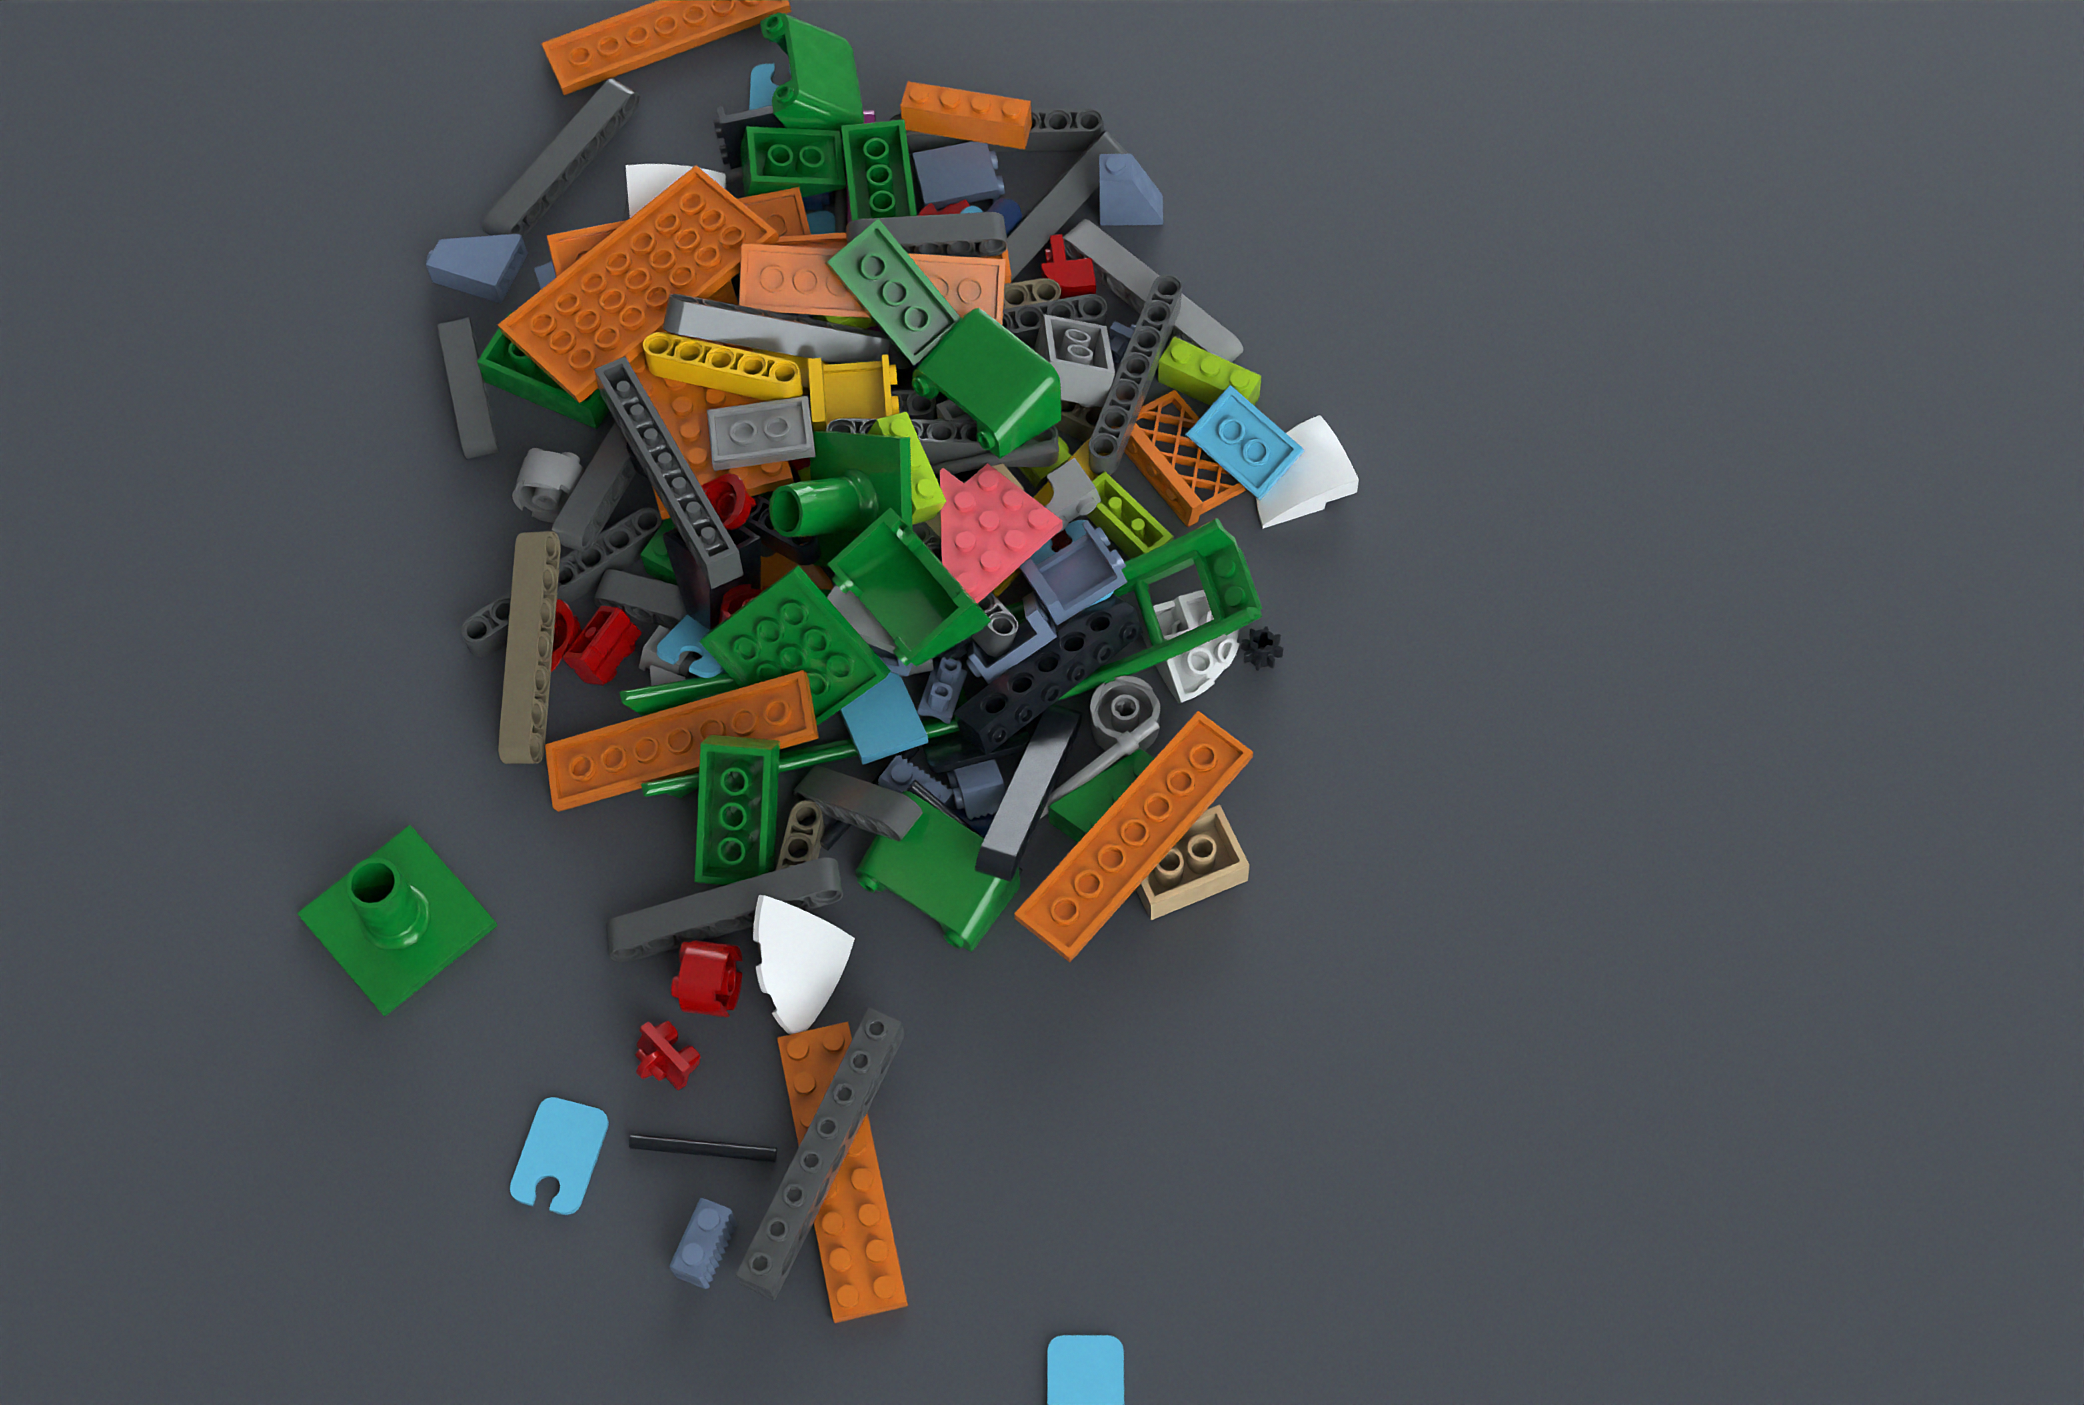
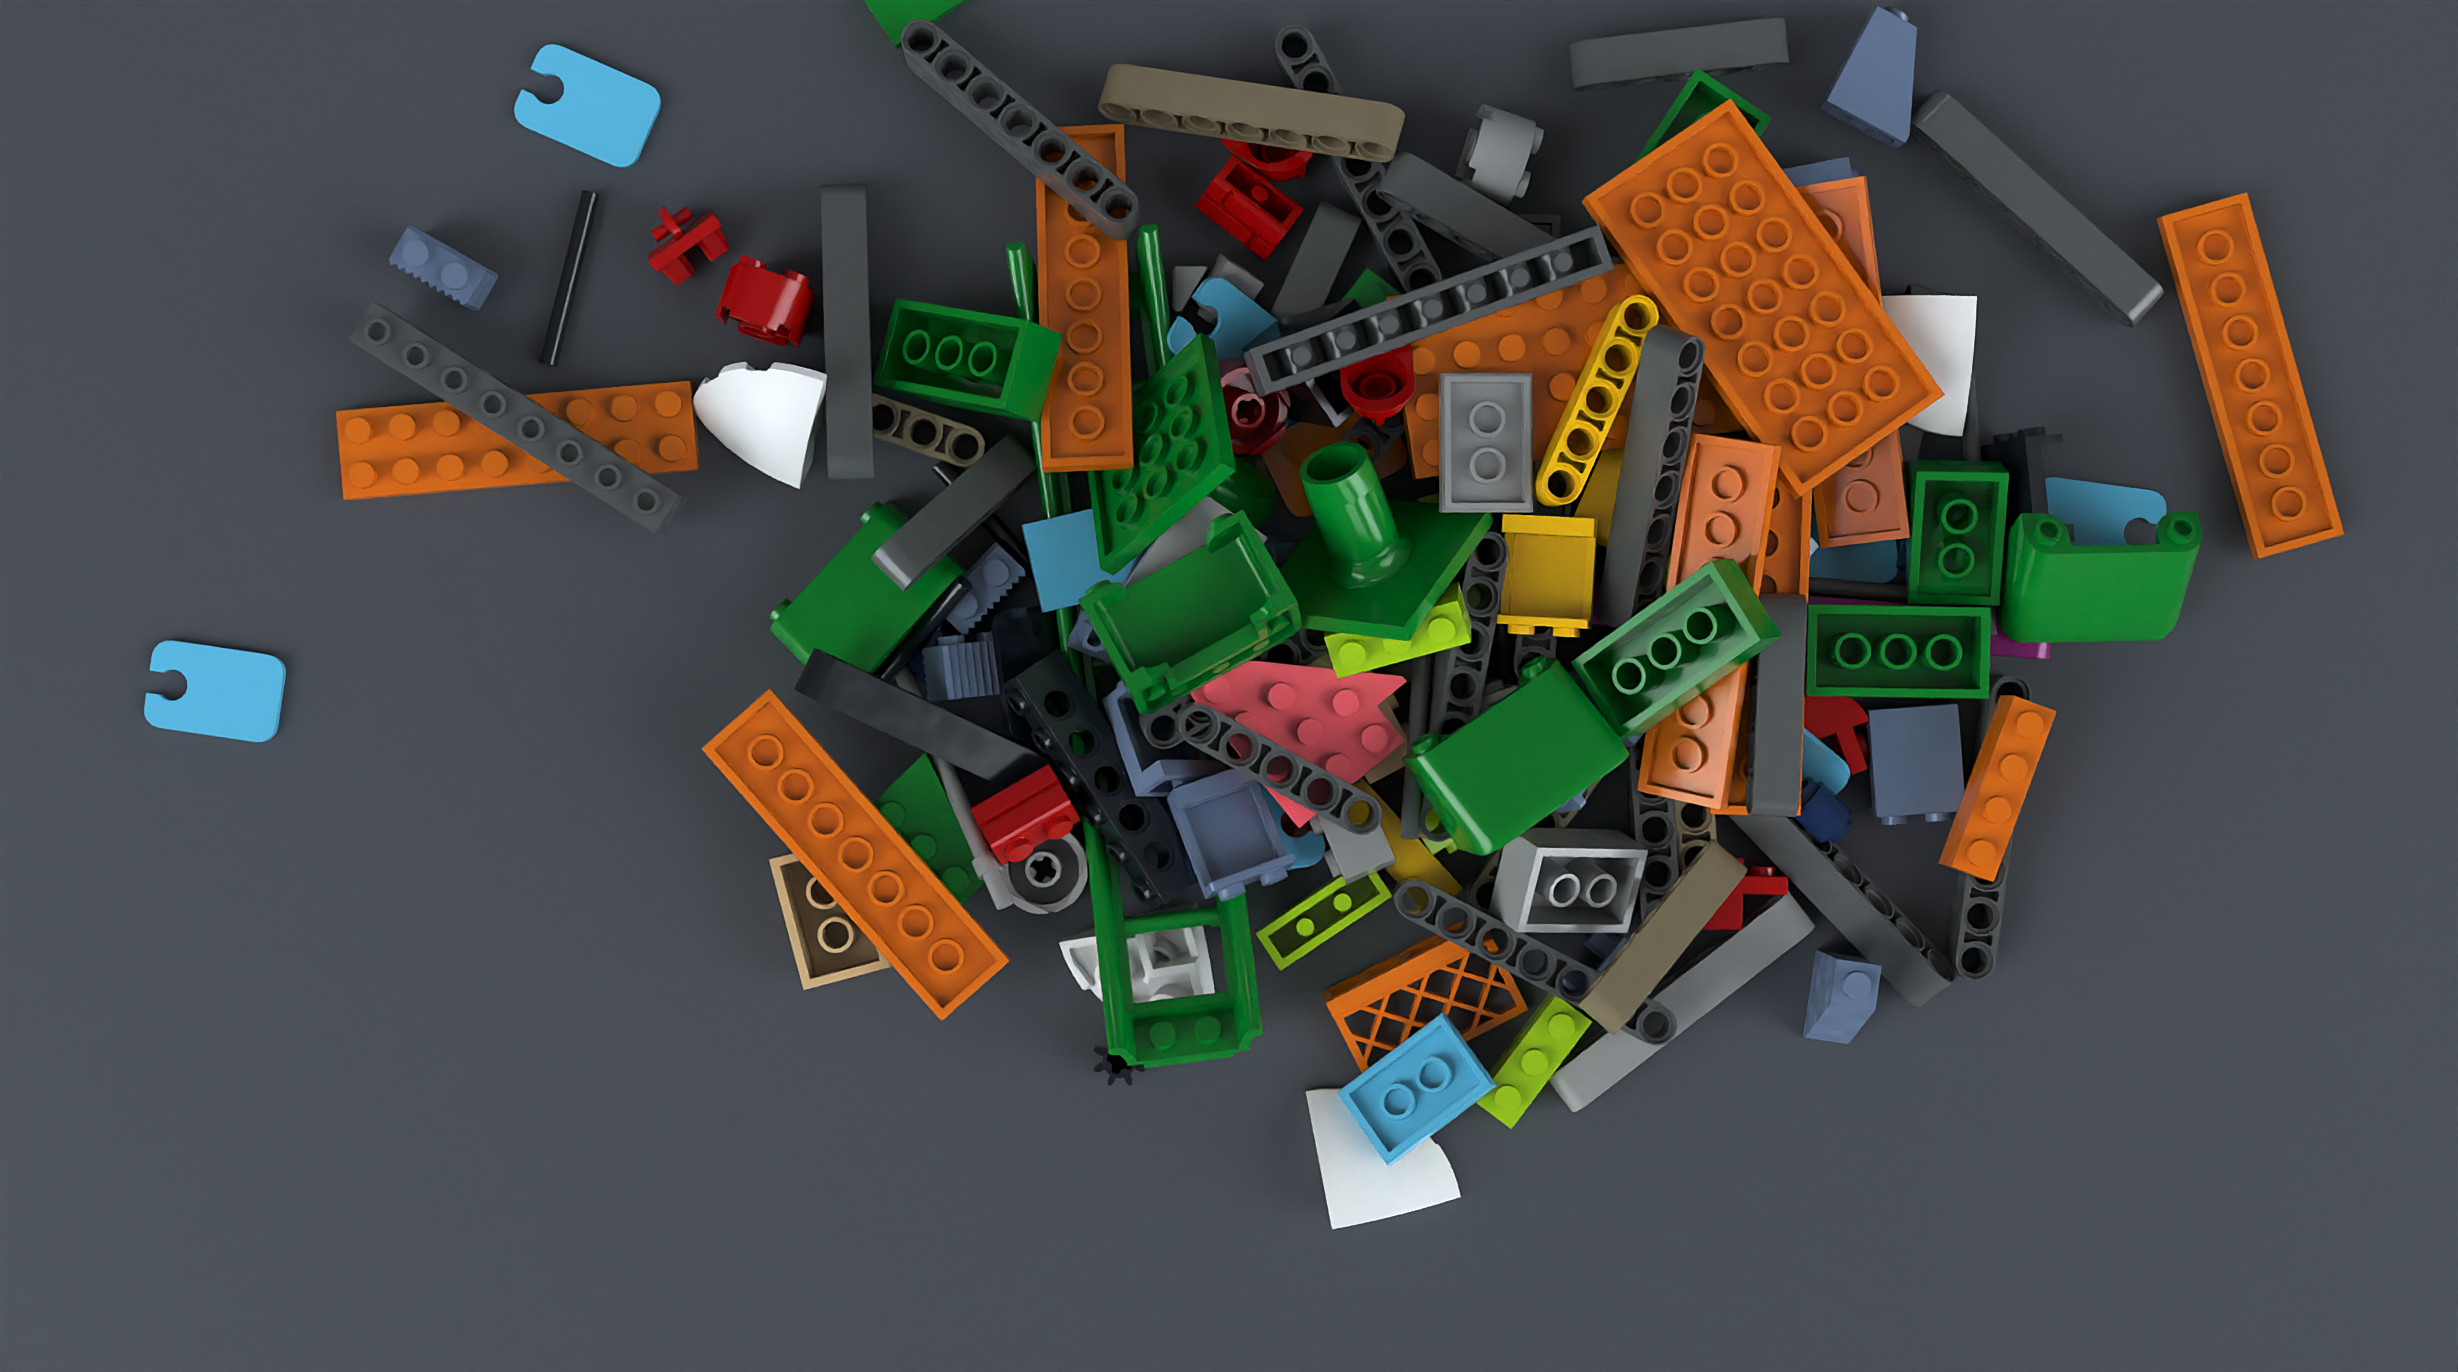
camera: 100 degrees right, 25 degrees up
(538, 815) = (1012, 111): none -> dark grey beam
(1018, 541) = (1296, 781): none -> dark grey beam
(1084, 717) = (1025, 815): none -> red brick
(1103, 289) = (1662, 937): none -> dark tan beam

